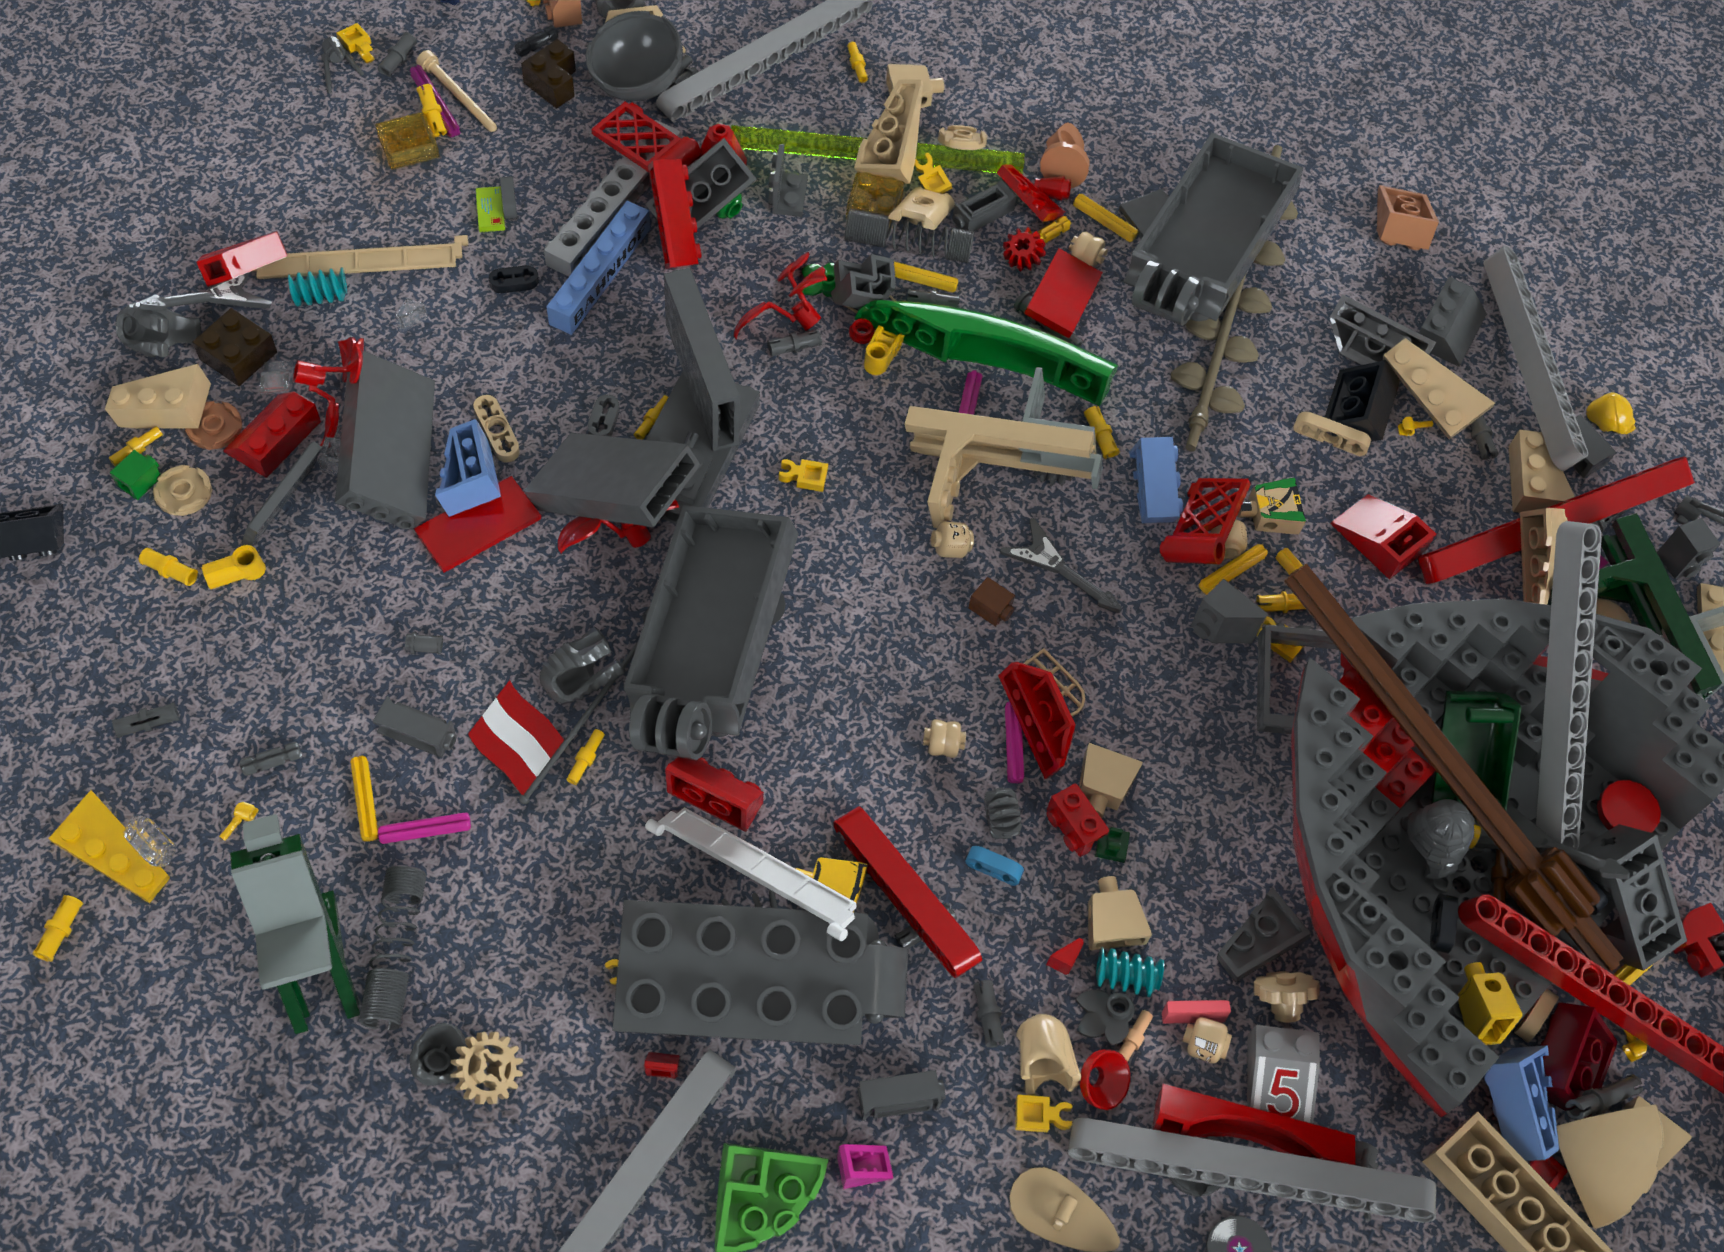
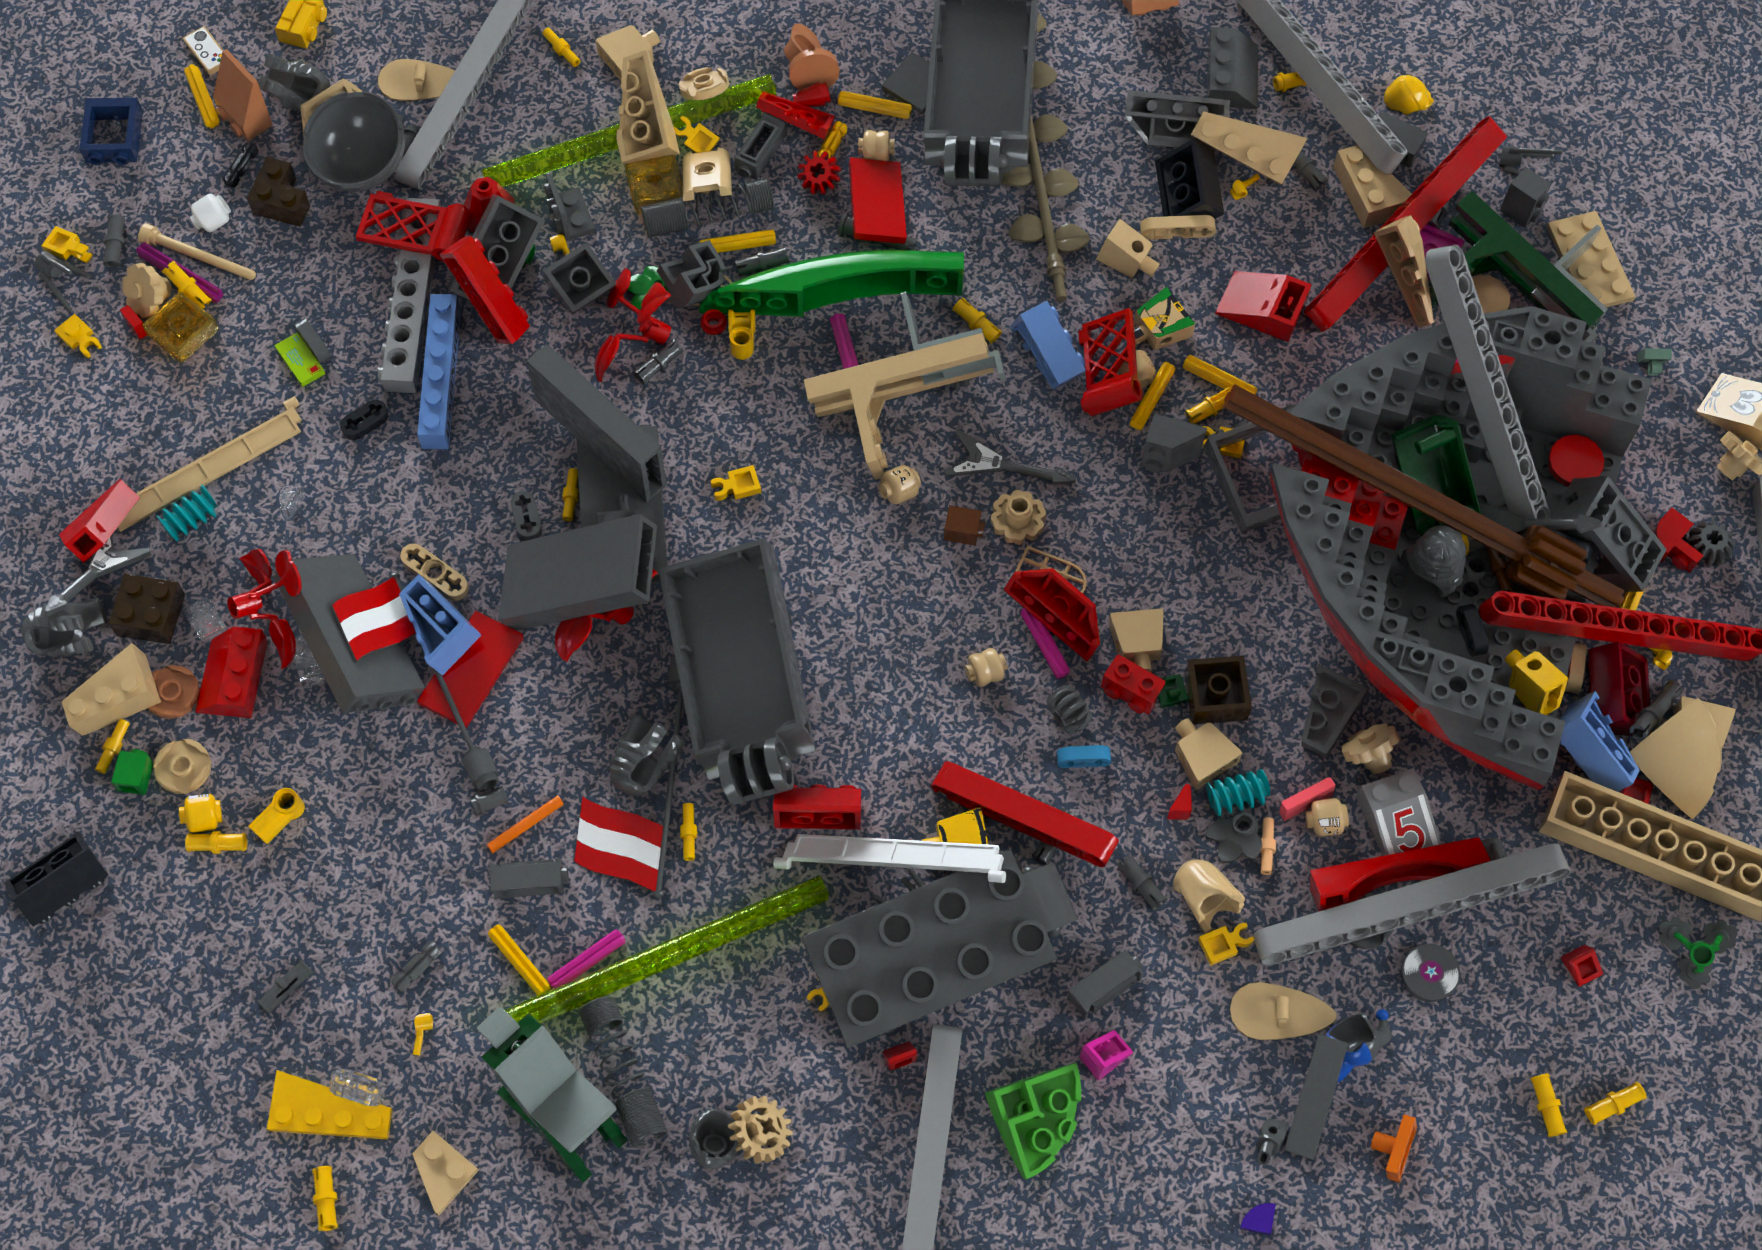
camera: 20 degrees left, 5 degrees up
(170, 535) = (201, 813): none -> yellow head
(177, 957) = (442, 1170): none -> tan wing
(281, 494) = (282, 729): dark grey tile -> none
(322, 112) = (77, 333): none -> yellow plate
(372, 119) = (133, 321): none -> red tile
(396, 98) = (145, 289): none -> tan plant
(418, 442) = (378, 621): none -> flag
(443, 680) = (525, 824): none -> orange bar
(487, 65) = (210, 212): none -> white head
(494, 858) = (672, 952): none -> clear neon green axle
(716, 36) = (413, 80): none -> tan shield
(762, 242) = (578, 278): none -> dark grey slope
(764, 211) = (559, 243): none -> yellow hand
(1048, 618) = (1018, 517): none -> tan plant
(1112, 1079) = (1267, 888): red piece -> none
(1158, 863) = (1217, 690): none -> dark brown brick
(1272, 431) = (1127, 251): none -> tan torso
(1500, 354) = (1286, 81): none -> yellow pin

